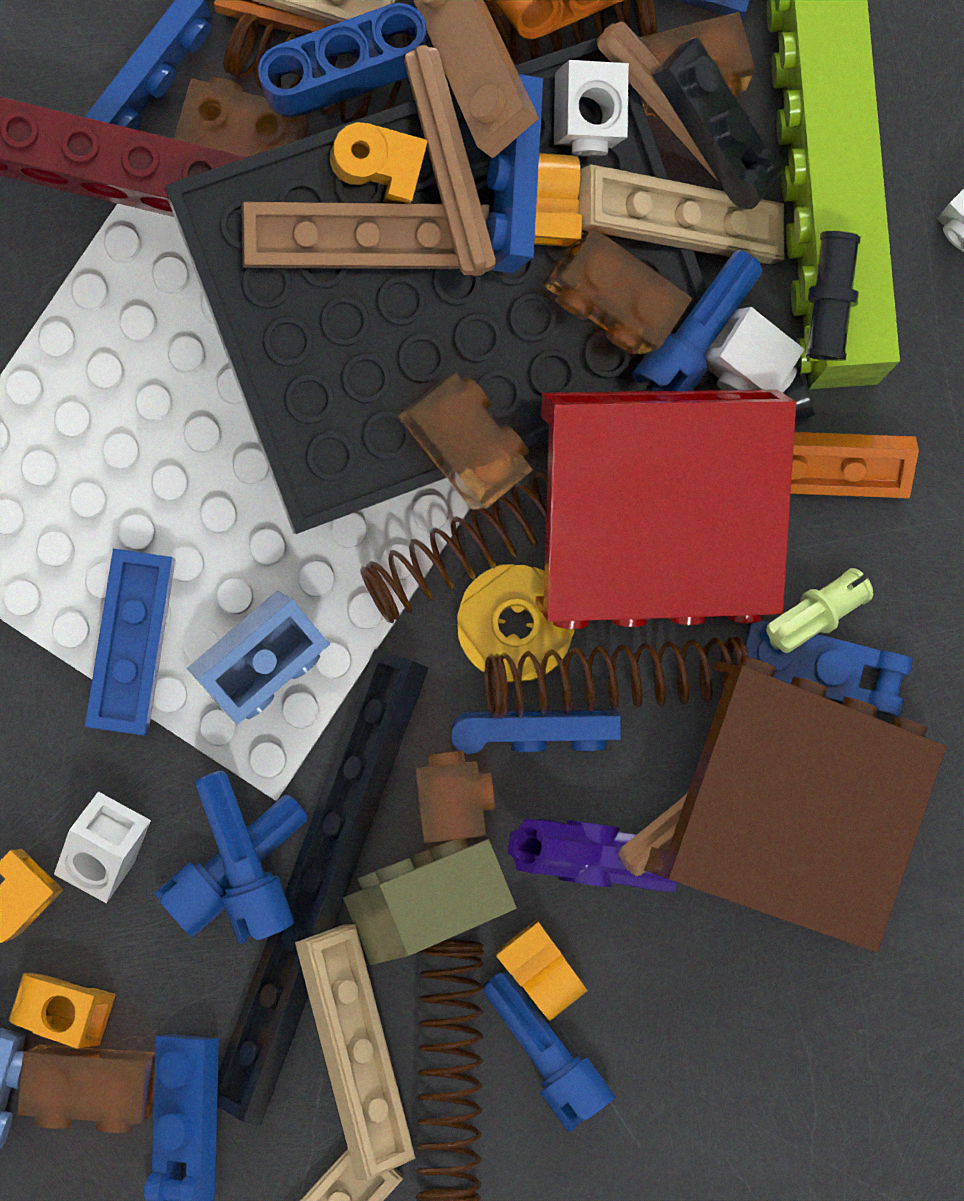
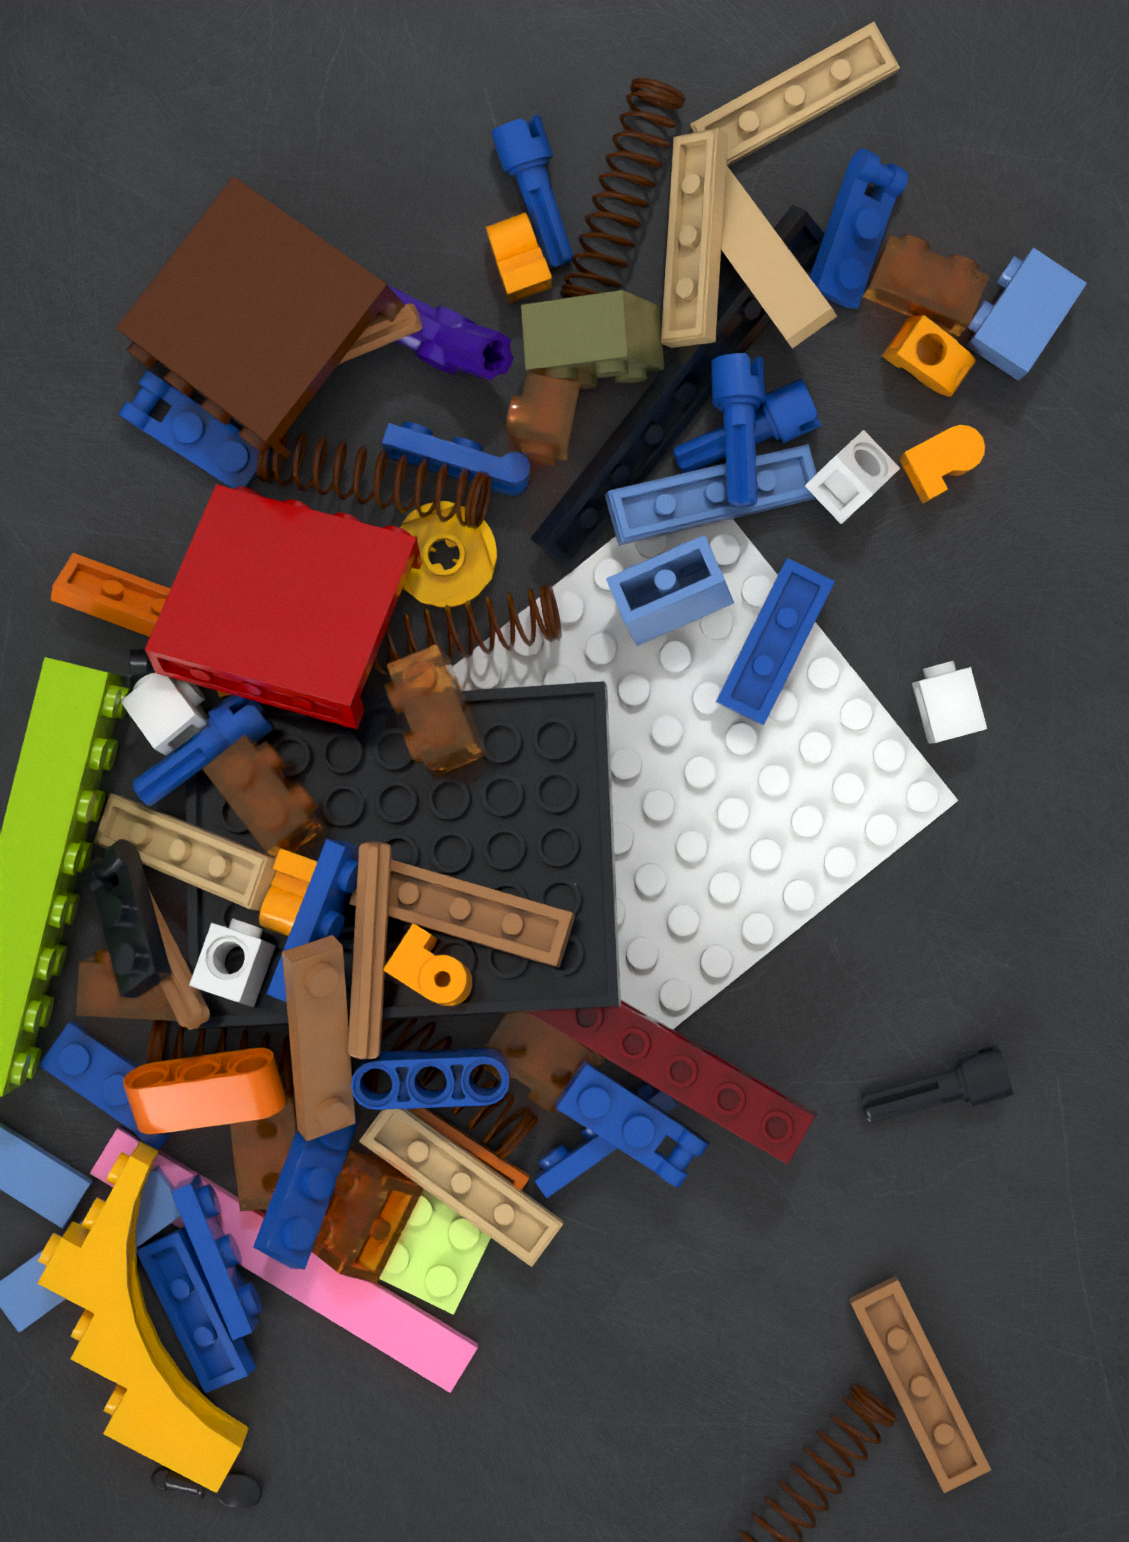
camera: 165 degrees left, 5 degrees up
(121, 86) = (630, 1122): none -> blue plate
(256, 776) = (702, 499): none -> medium blue tile
(259, 1042) = (770, 267): none -> tan tile
(819, 611) = (184, 478): yellowish green axle -> none
(833, 295) = (82, 727): black pin -> none

